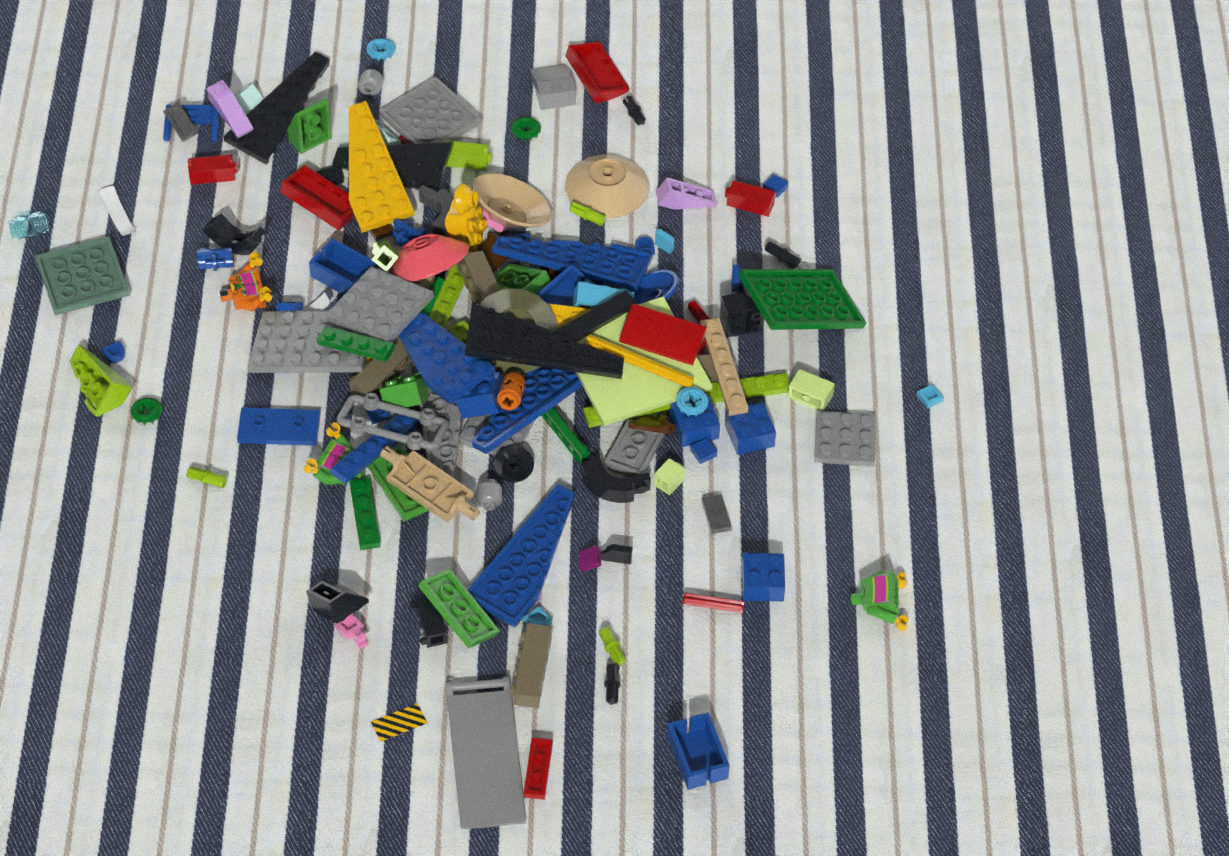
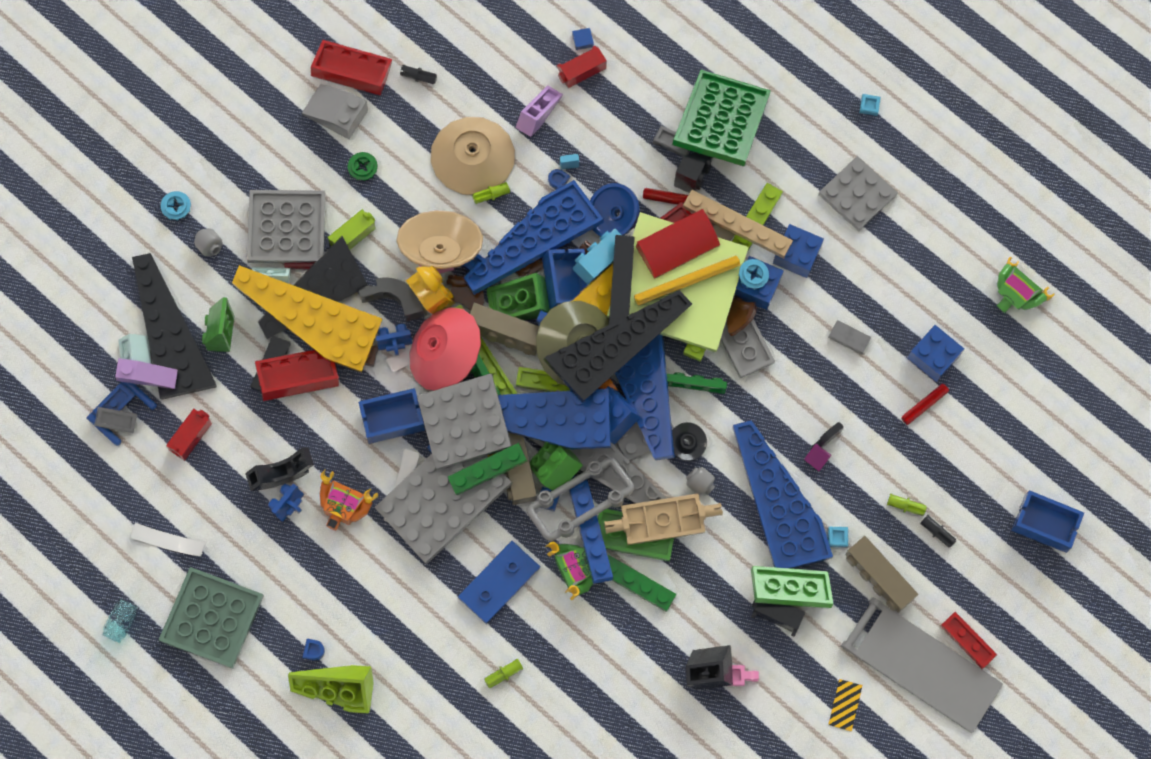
camera: 50 degrees left, 20 degrees up
(151, 405) = (392, 662): green gear -> none
(289, 306) = (389, 484): blue tile -> none
(384, 254) = (410, 376): brick -> none
(511, 391) = (631, 392): orange piece -> none
(611, 487) = (762, 393): black arch -> none
(669, 476) = (792, 341): yellowish green brick -> none
(703, 450) = (785, 298): blue tile -> none
(735, 278) = (649, 142): blue tile -> none
(782, 254) = (655, 91): black axle -> none
(811, 390) = (798, 179): yellowish green brick -> none

